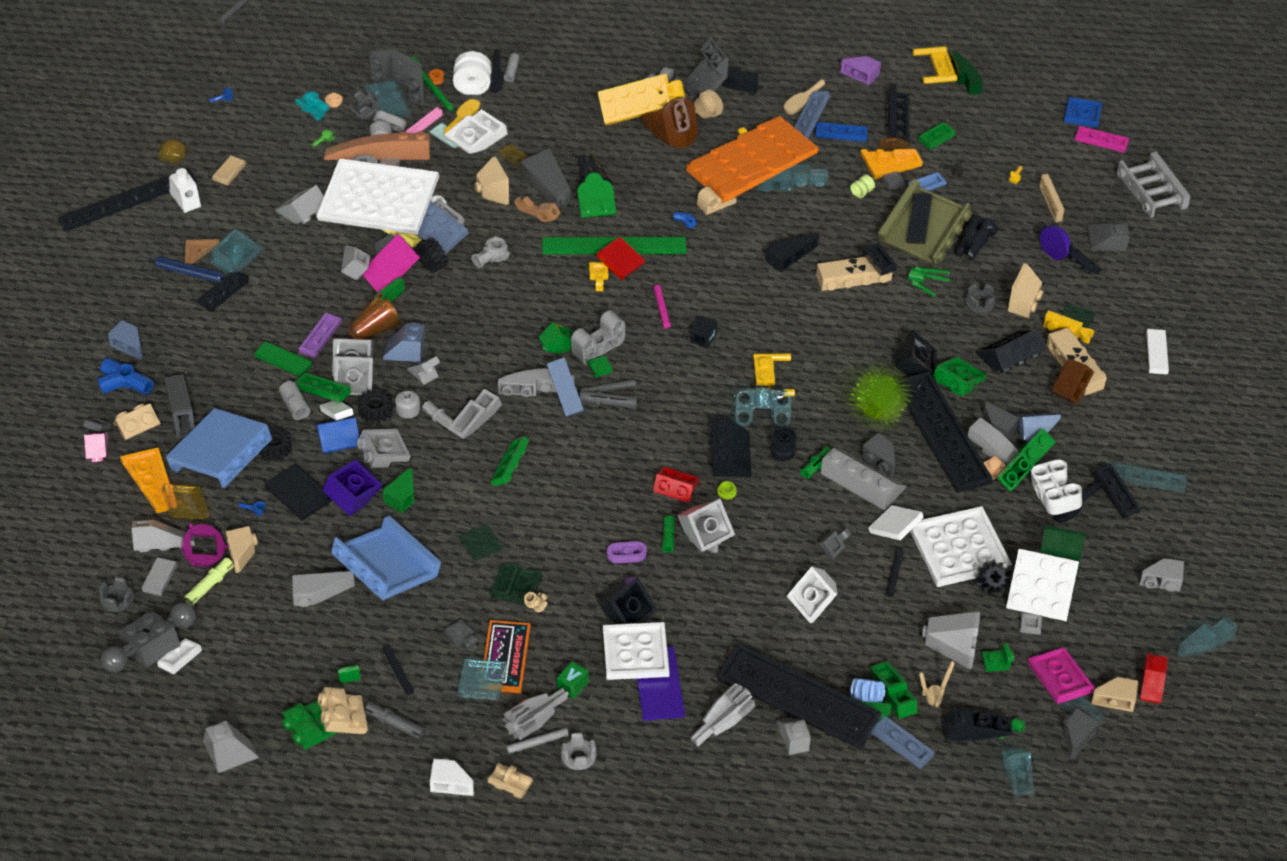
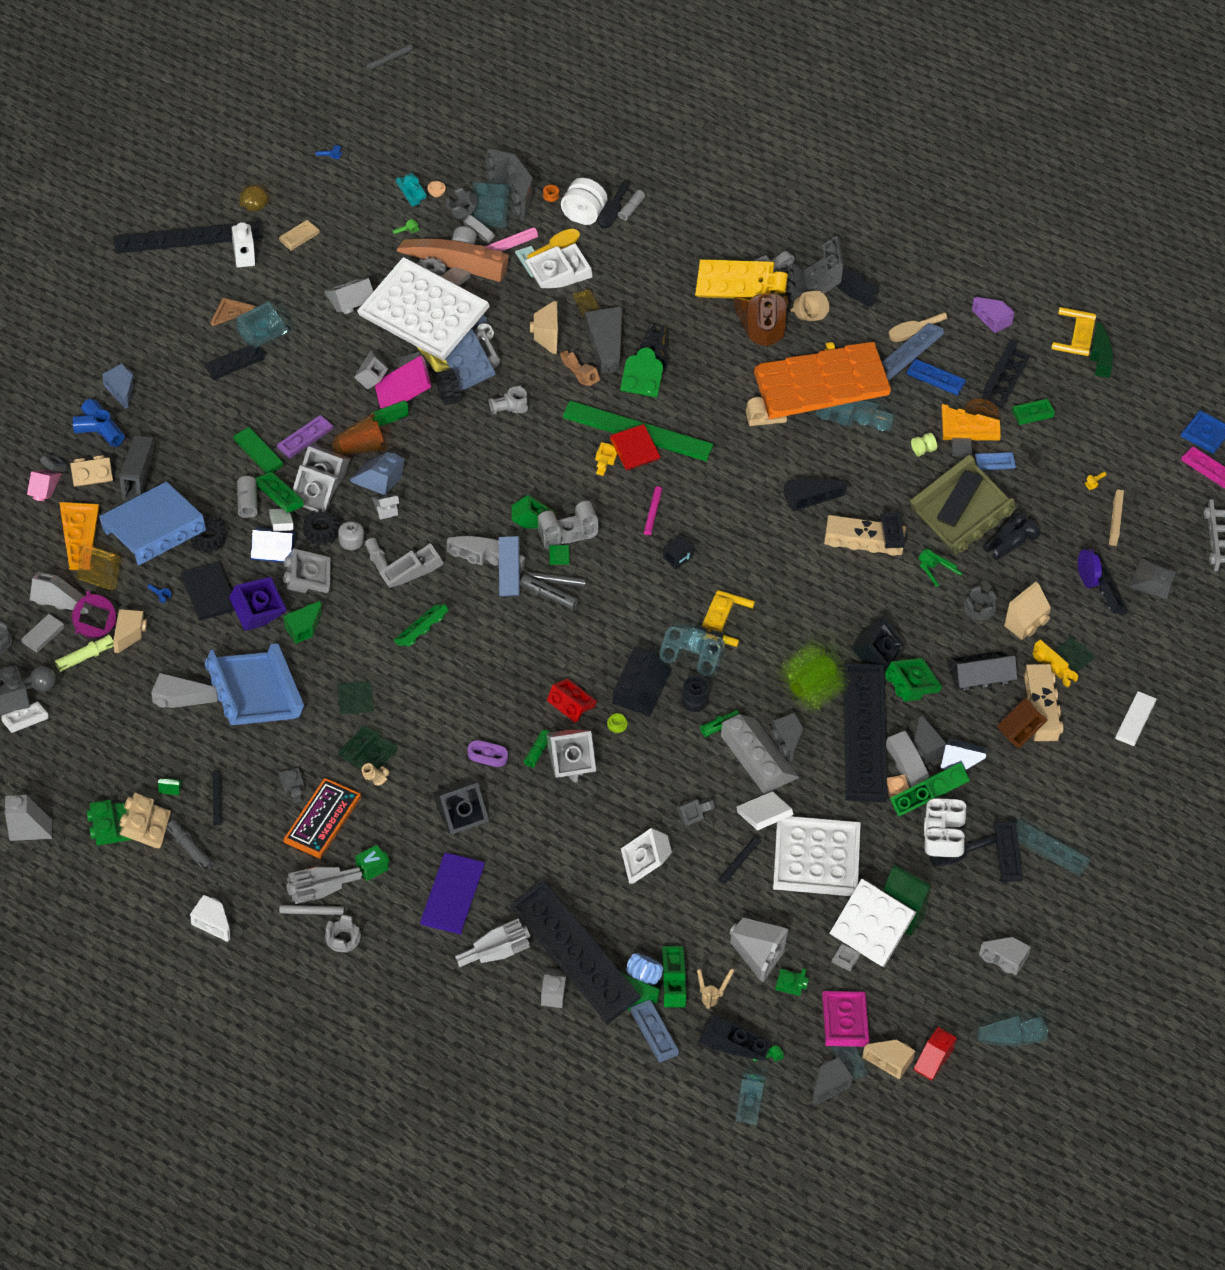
camera: 20 degrees right, 5 degrees up
(188, 269) = (212, 329): dark blue axle -> none
(435, 90) = (535, 172): green piece -> none
(482, 679) = (287, 833): clear light blue plate -> none
(510, 780) = (265, 939): tan hips -> none
(635, 651) = (443, 854): white plate -> none
(686, 218) = (726, 424): blue arm -> none
(995, 570) = (835, 893): black gear -> none

